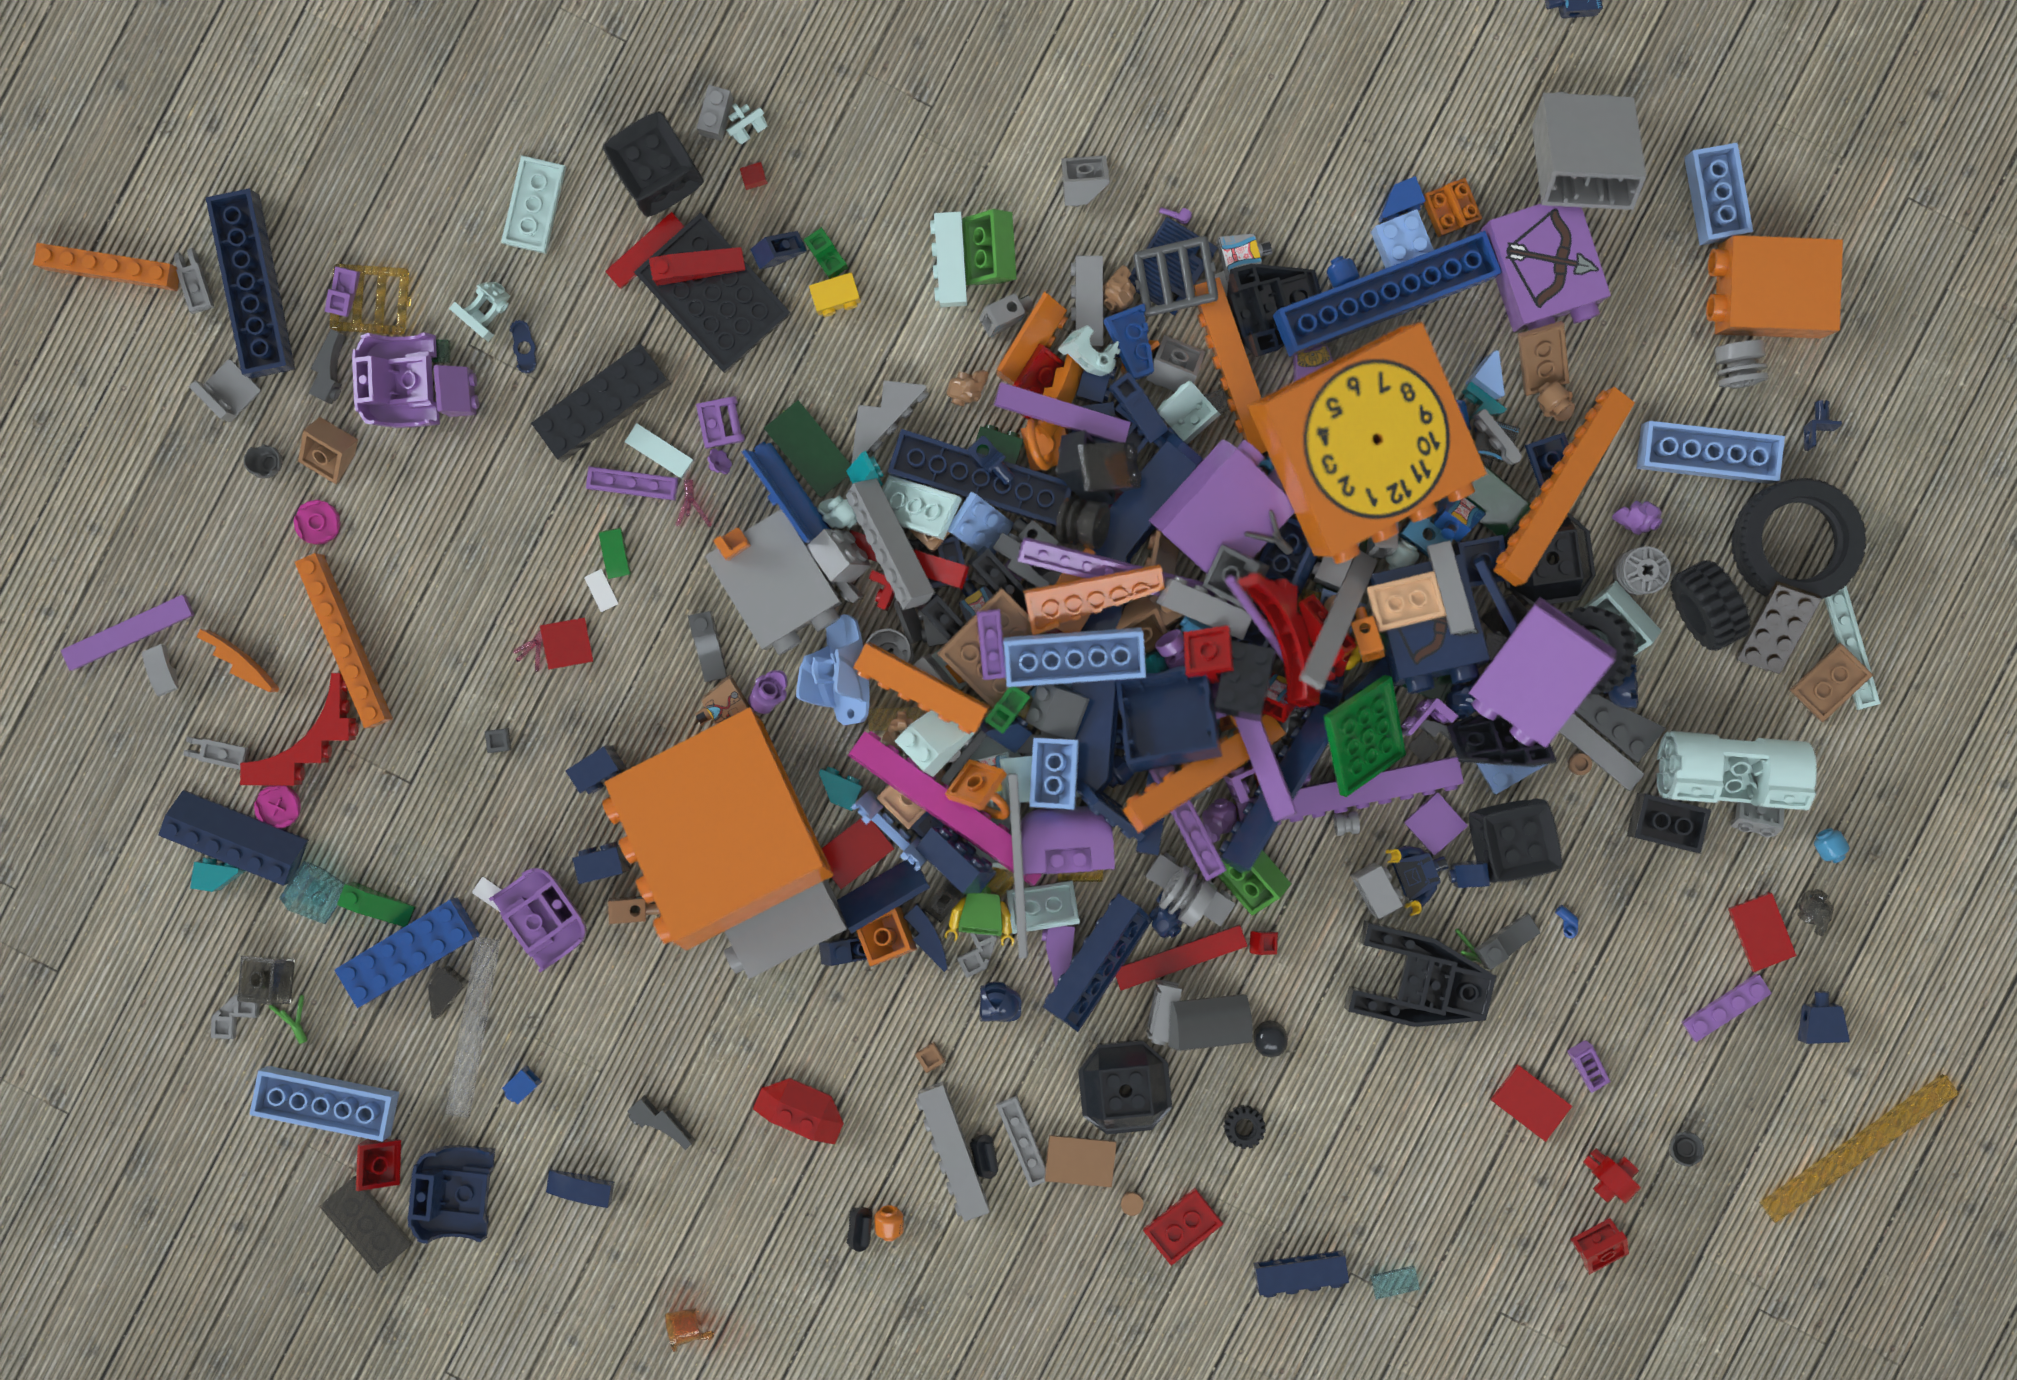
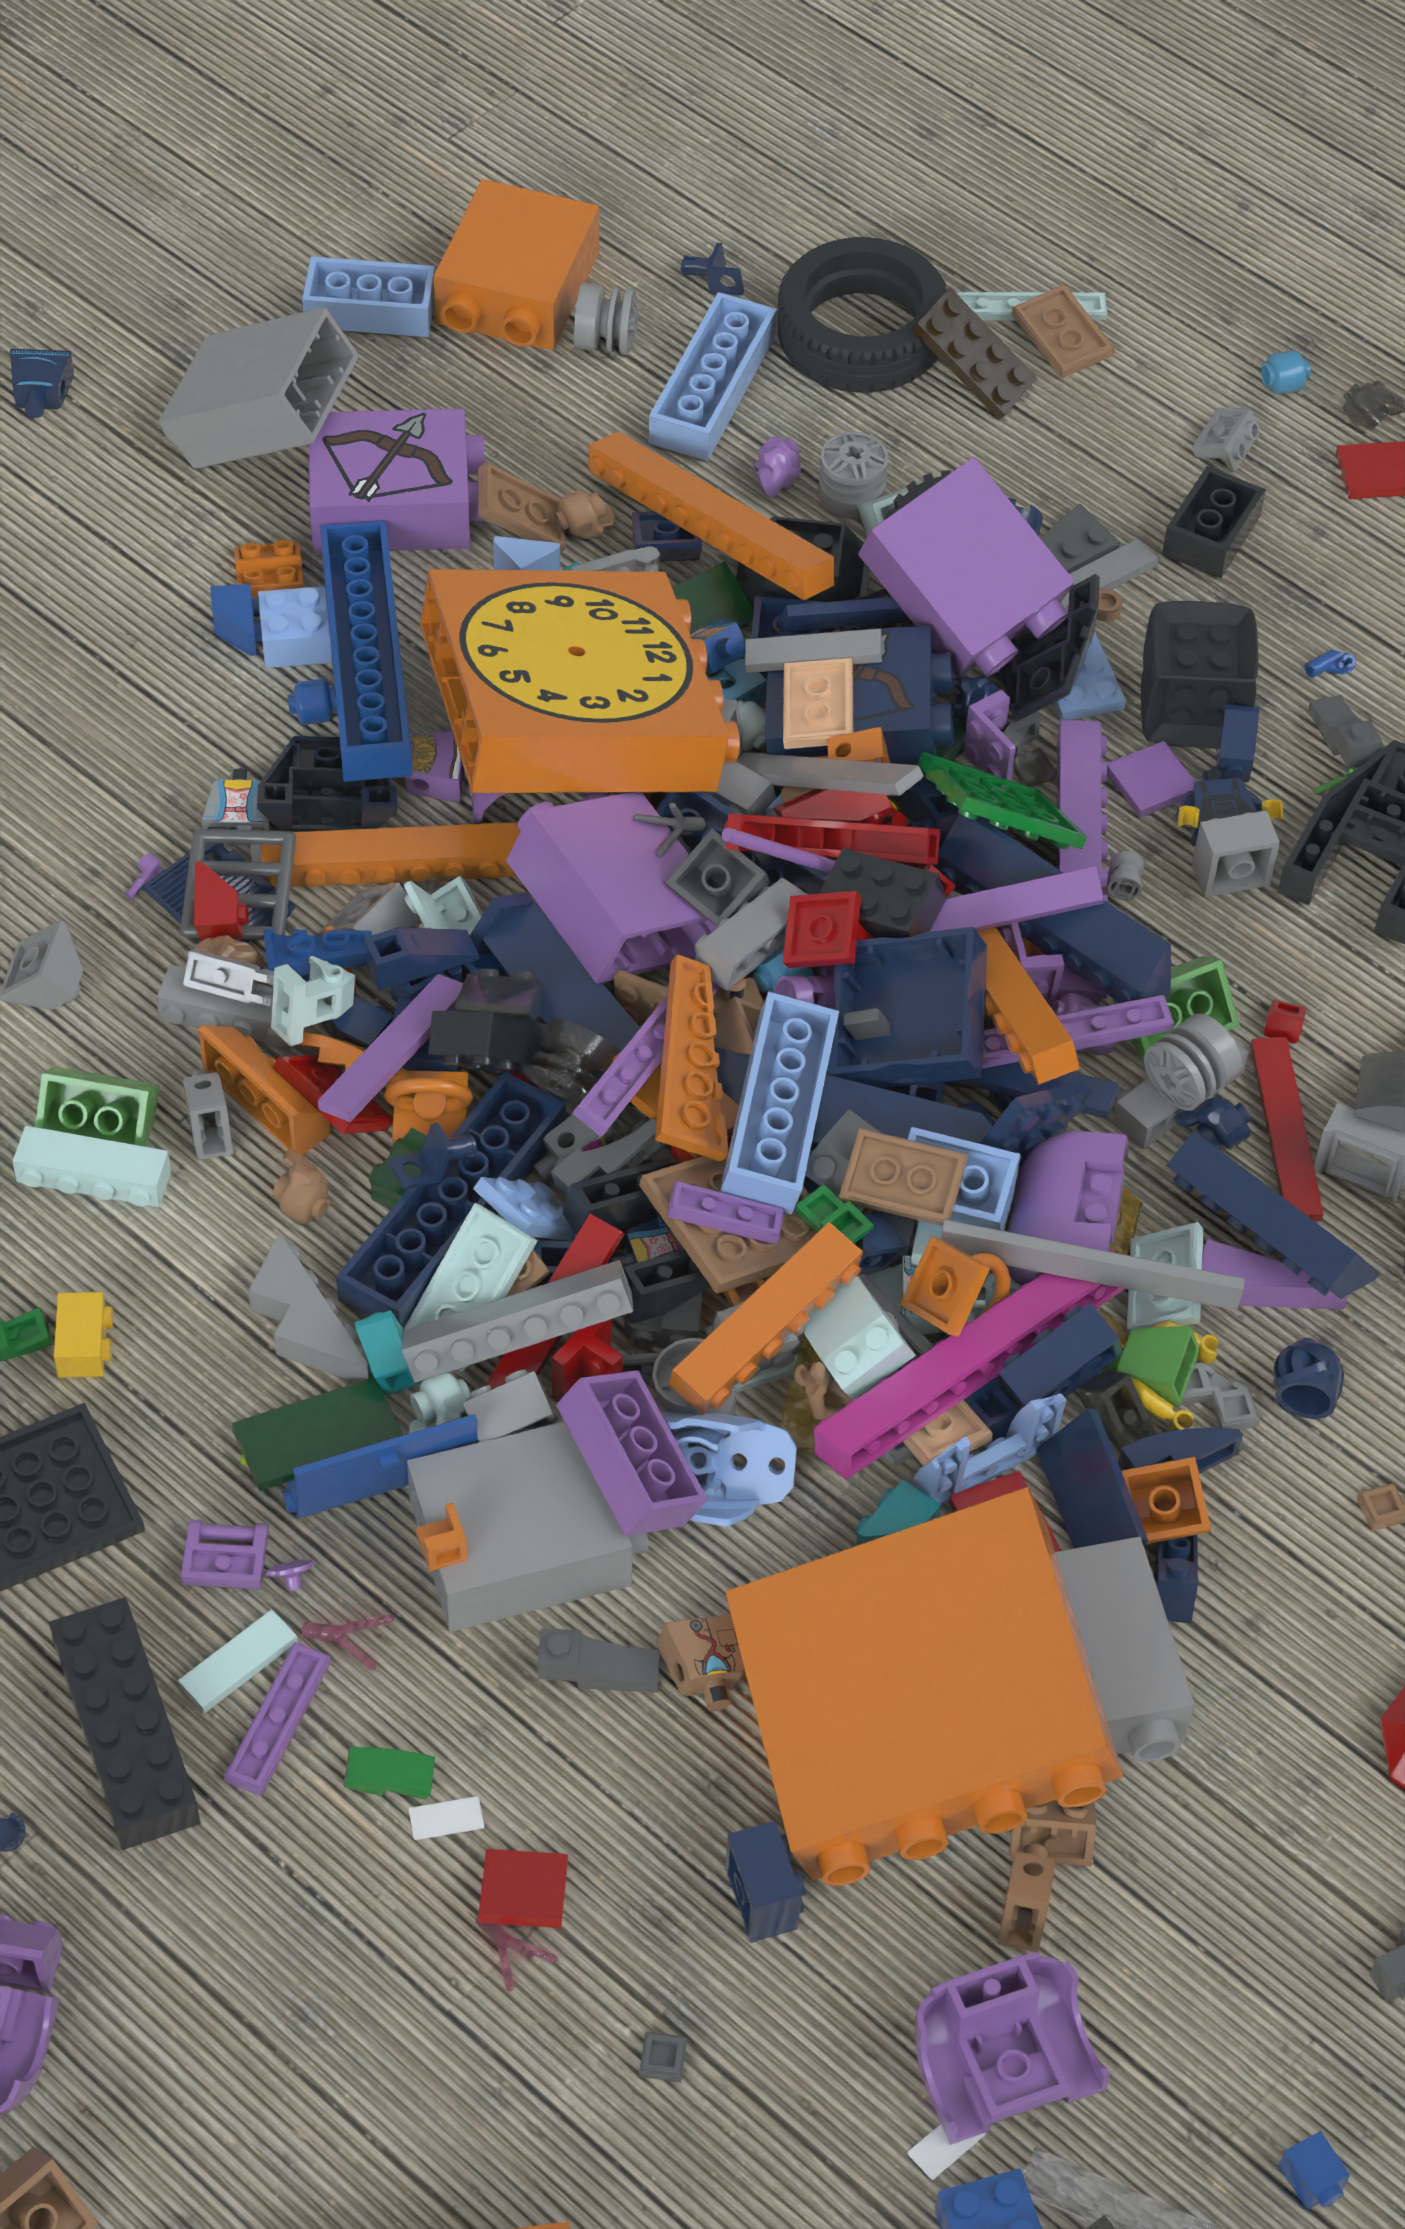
camera: 80 degrees left, 35 degrees down
(600, 864) = (932, 1915): dark blue brick -> none
(768, 691) = (701, 1583): medium lavender head -> none
(813, 633) = (631, 1452): none -> medium lavender brick
(1042, 743) = (903, 1177): none -> medium nougat tile
(1094, 298) = (227, 977): none -> hinge
(1149, 269) = (217, 906): none -> red slope
(1156, 694) = (867, 1024): none -> dark grey tile
(1710, 605) = (918, 374): black tyre -> none
(1751, 772) = (1158, 429): light aqua cylinder -> none

